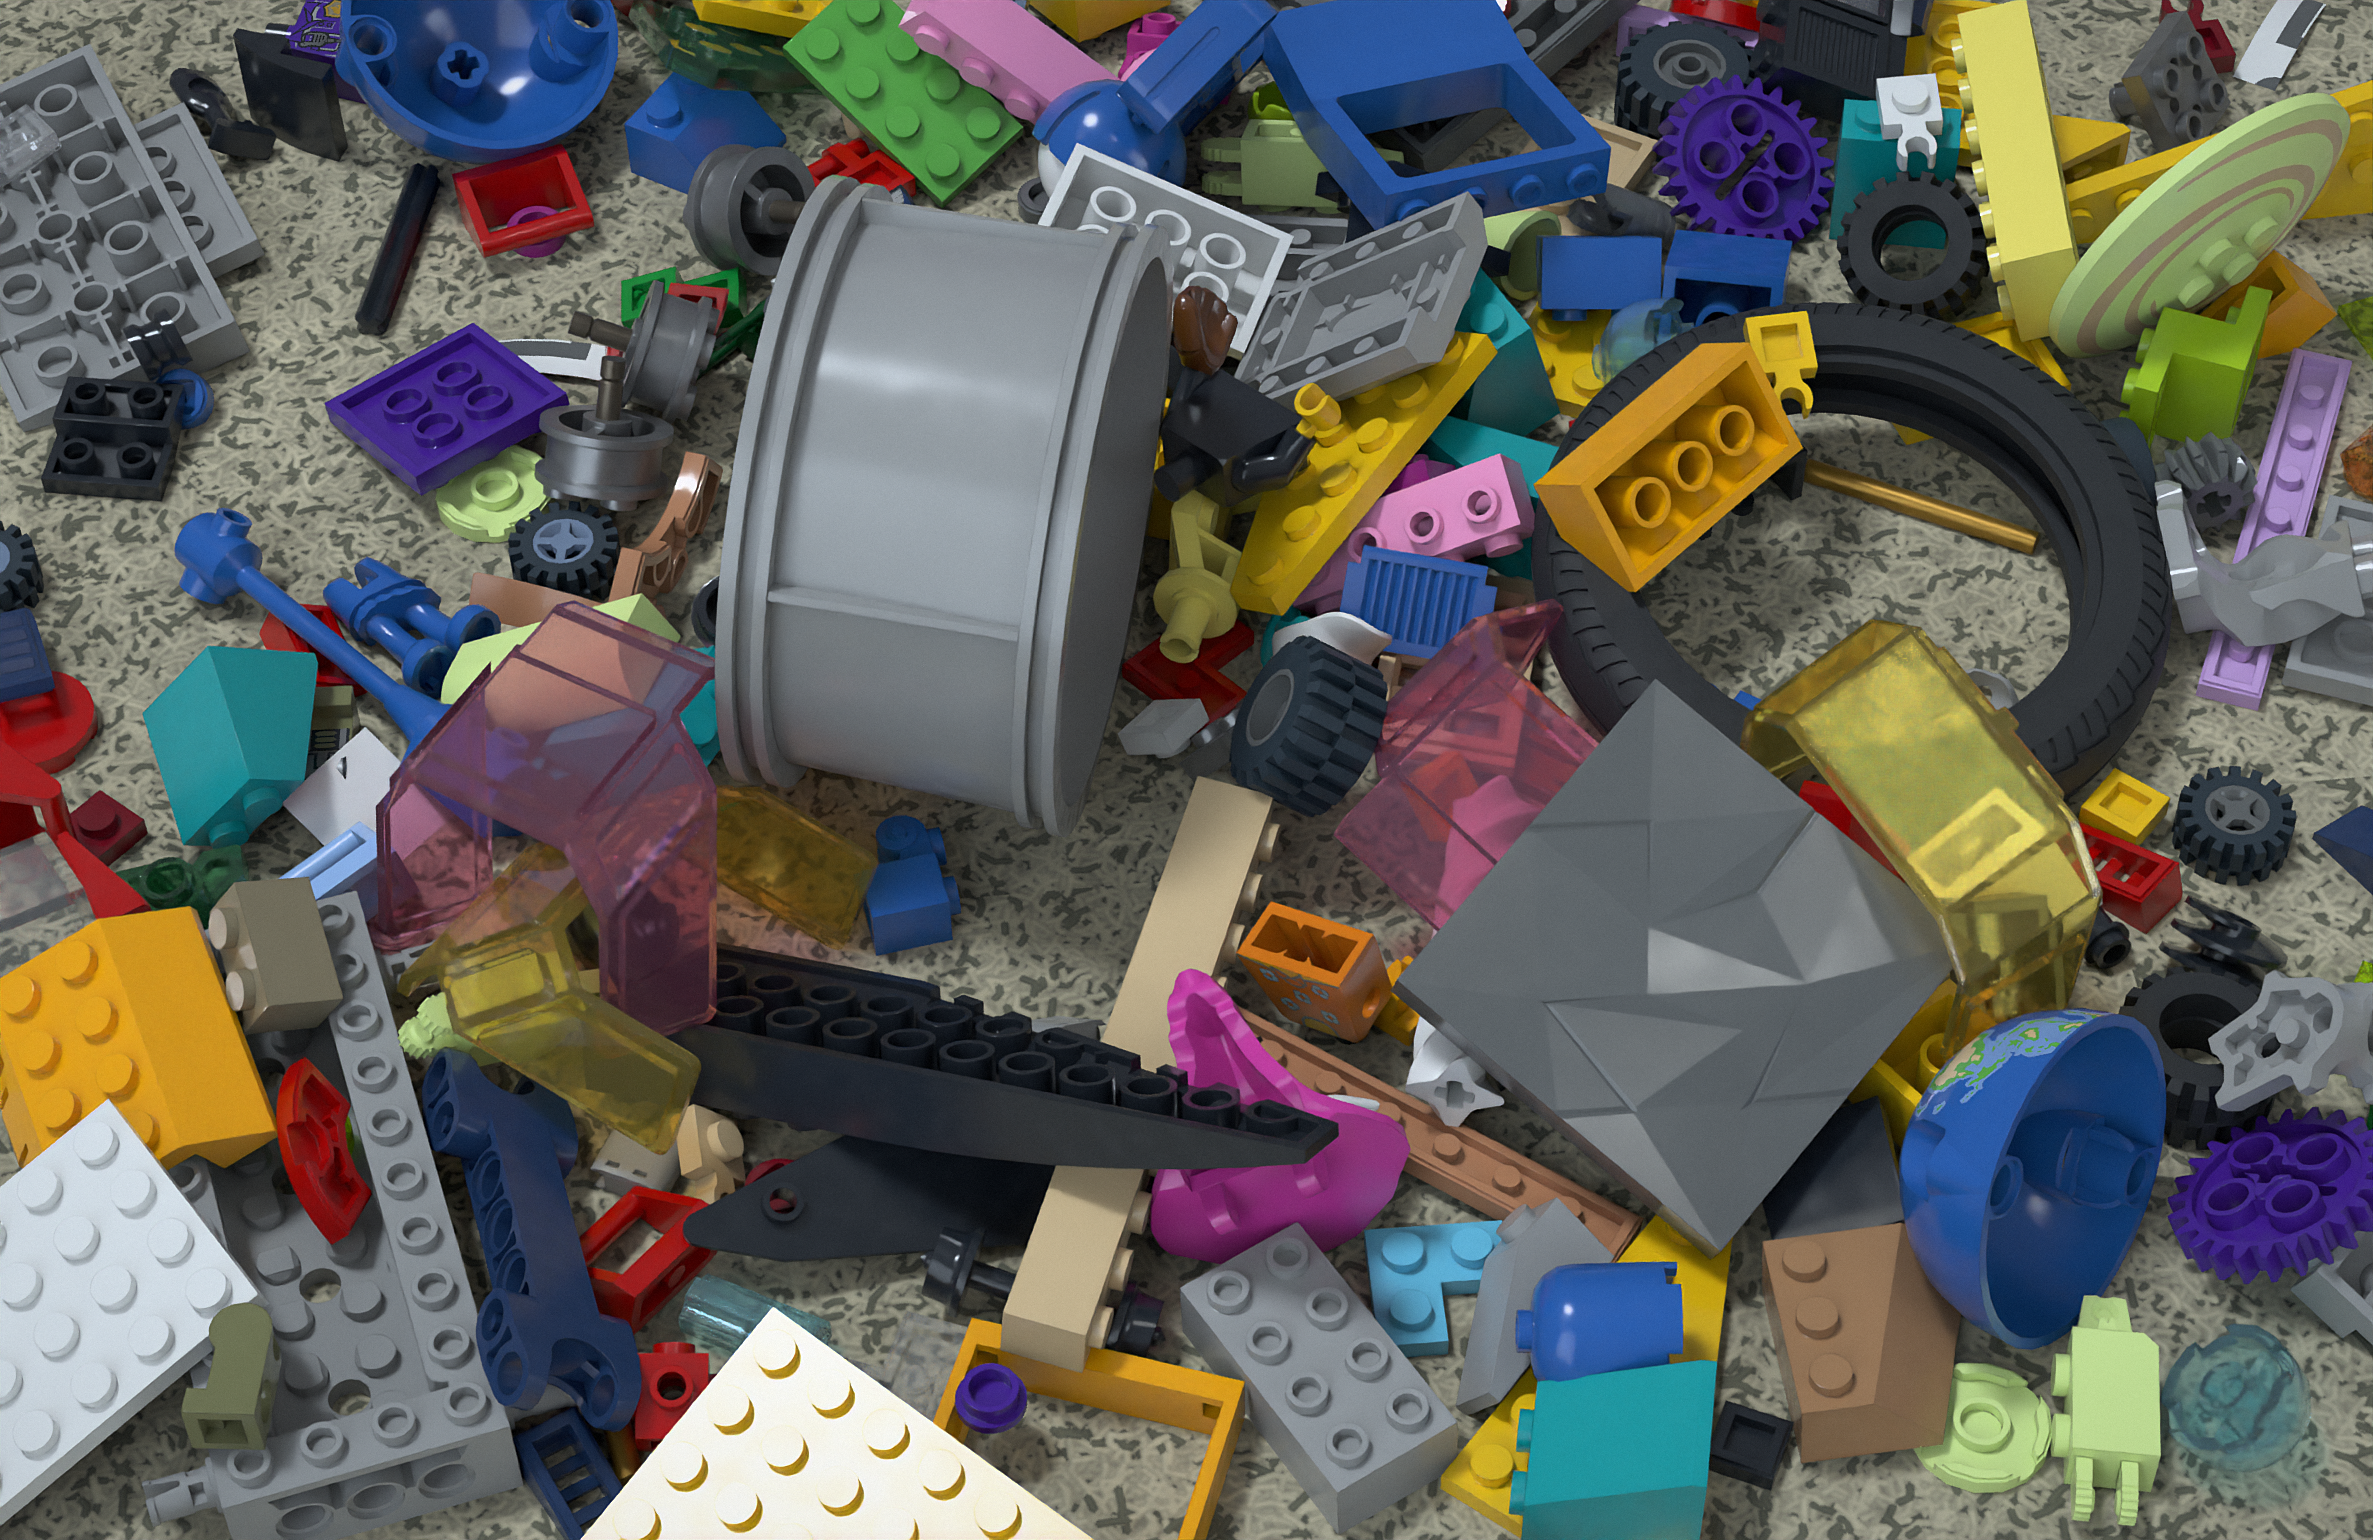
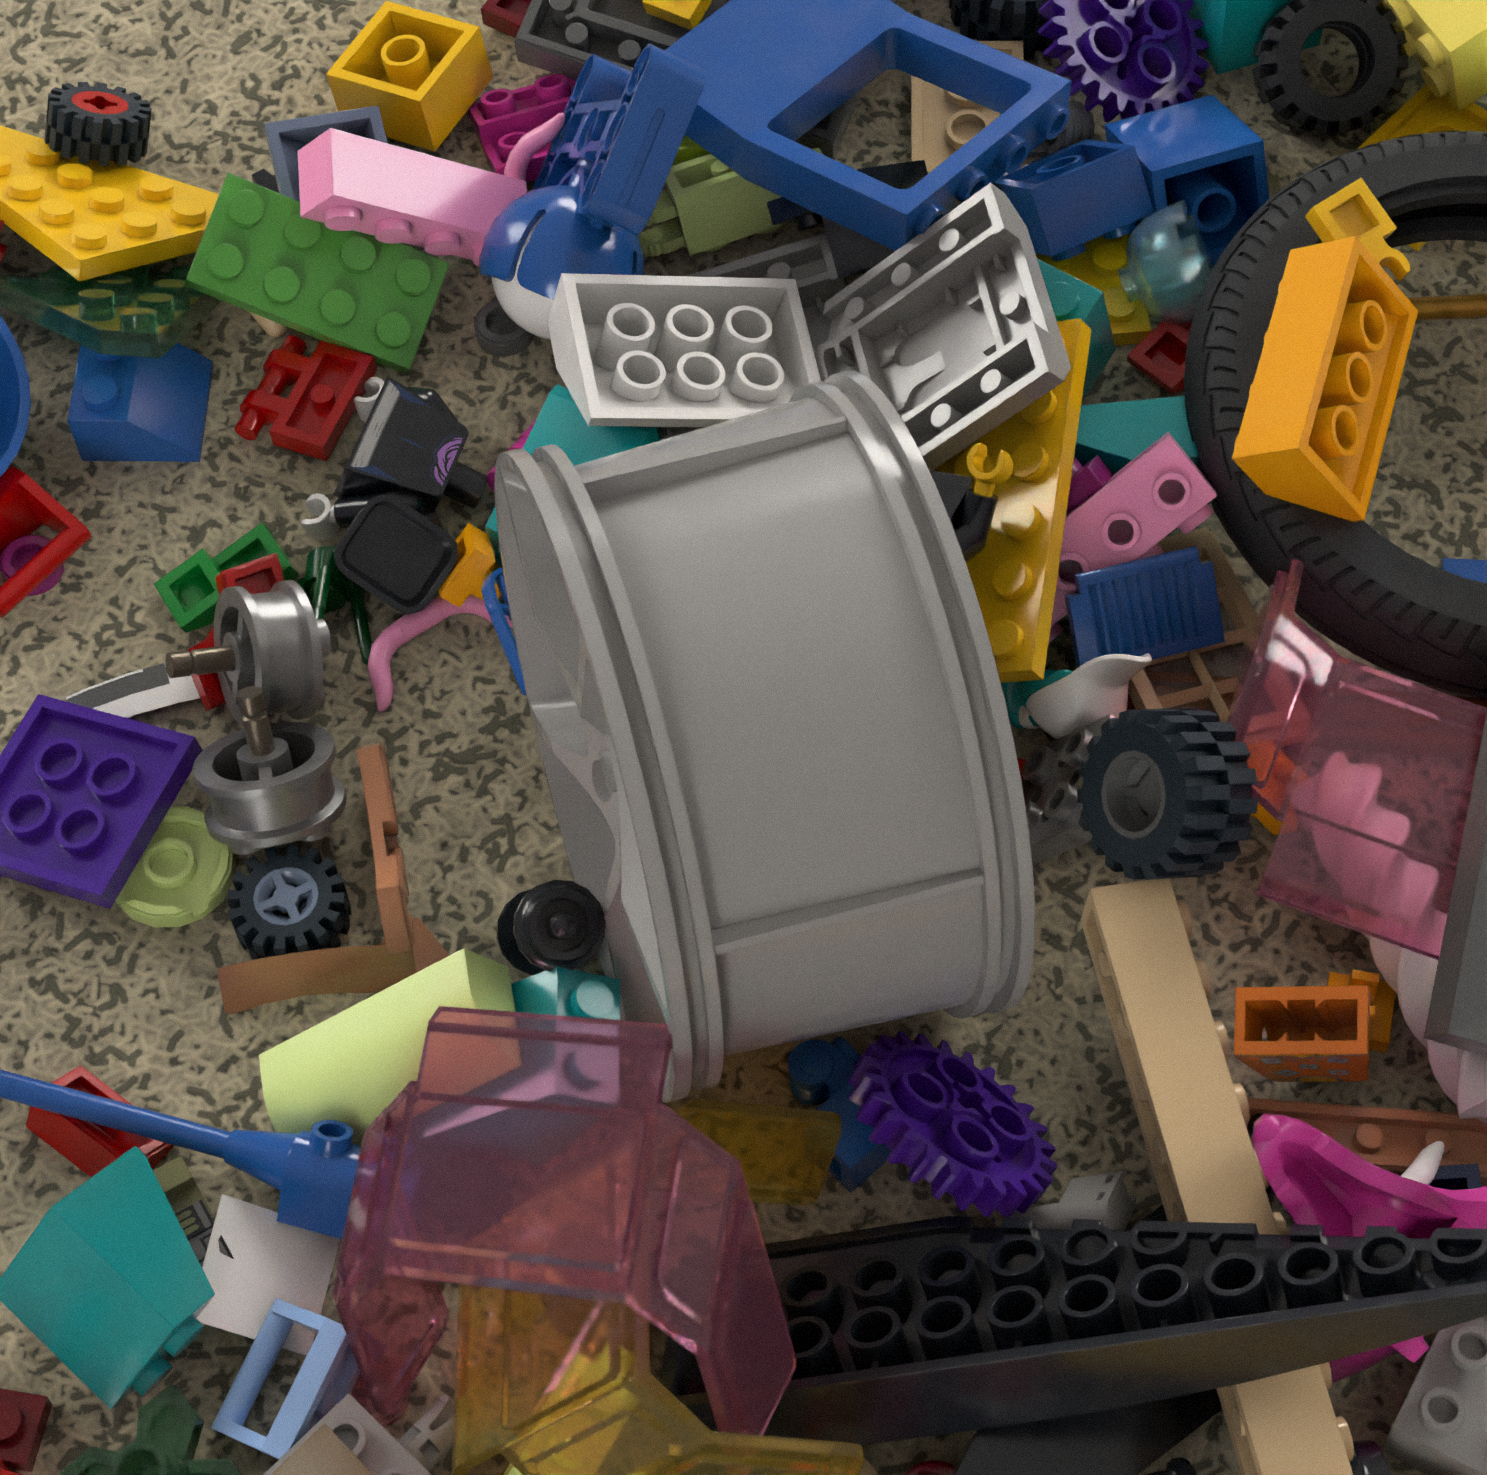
camera: 25 degrees left, 10 degrees up
(393, 606) = (155, 1035): blue piece -> none
(746, 206) = (253, 459): flat silver wheel -> none
(974, 916) = (952, 1124): none -> dark purple gear

